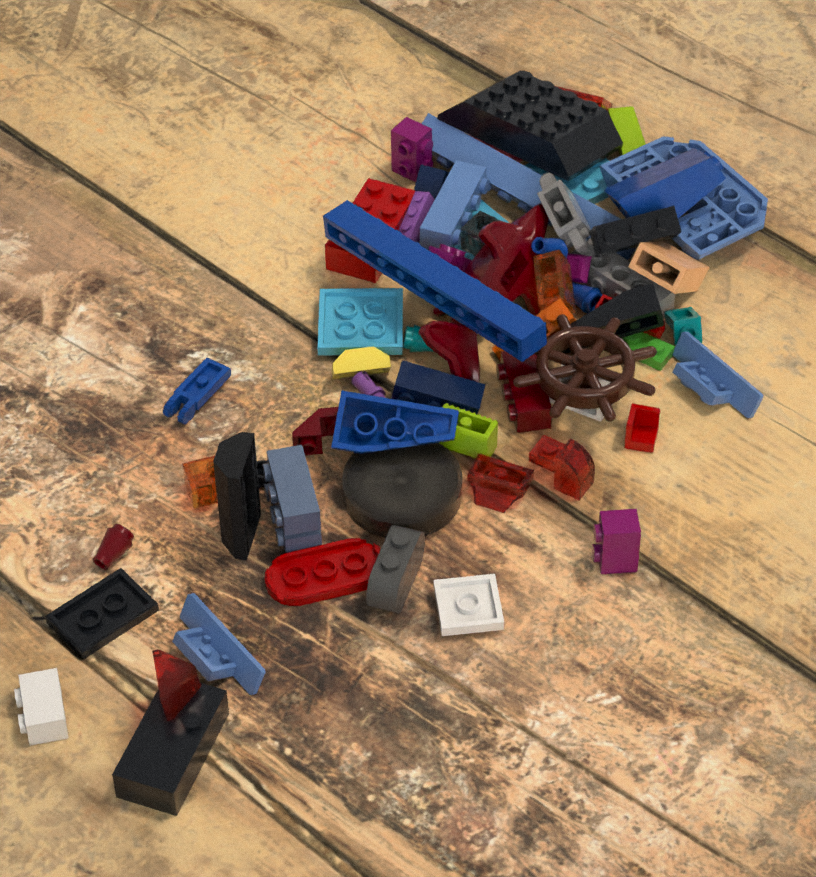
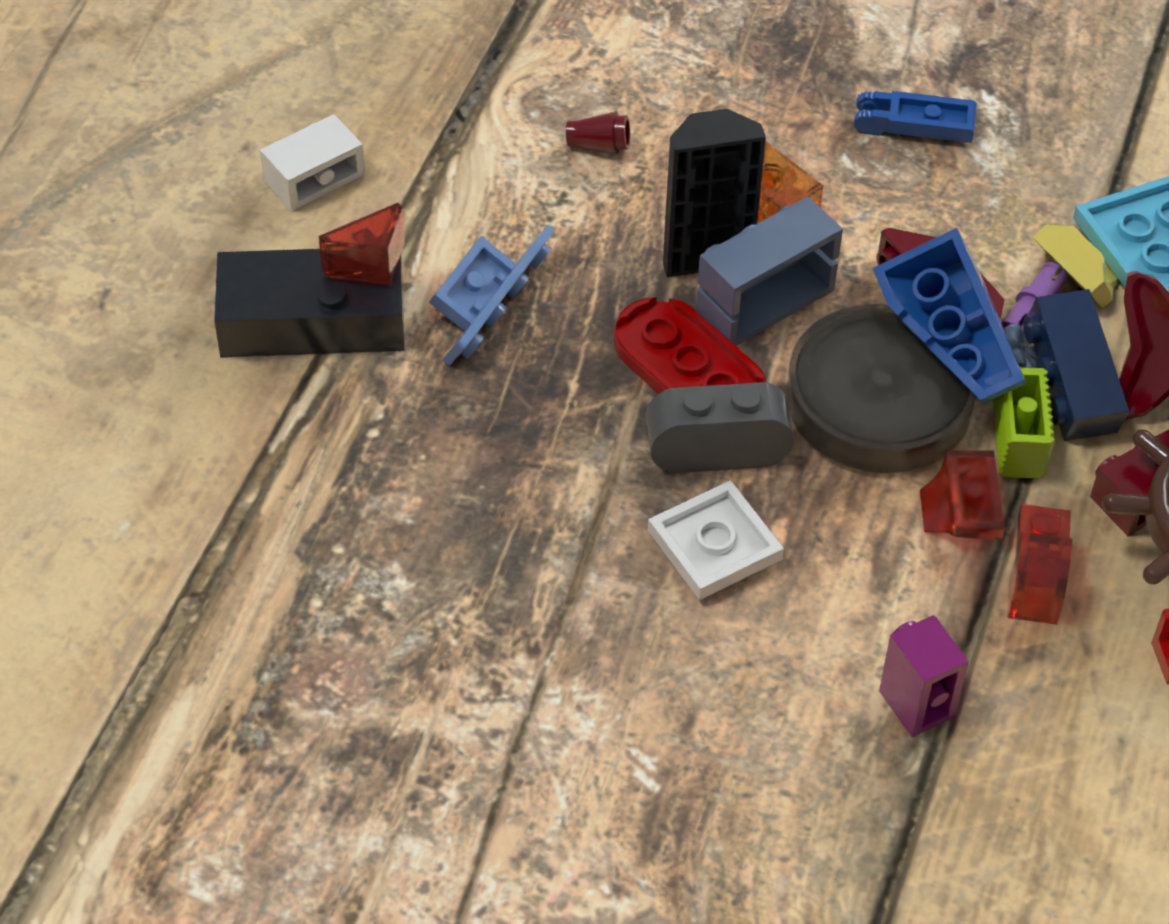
camera: 65 degrees right, 5 degrees up
(102, 613) = (494, 167): black tile -> none

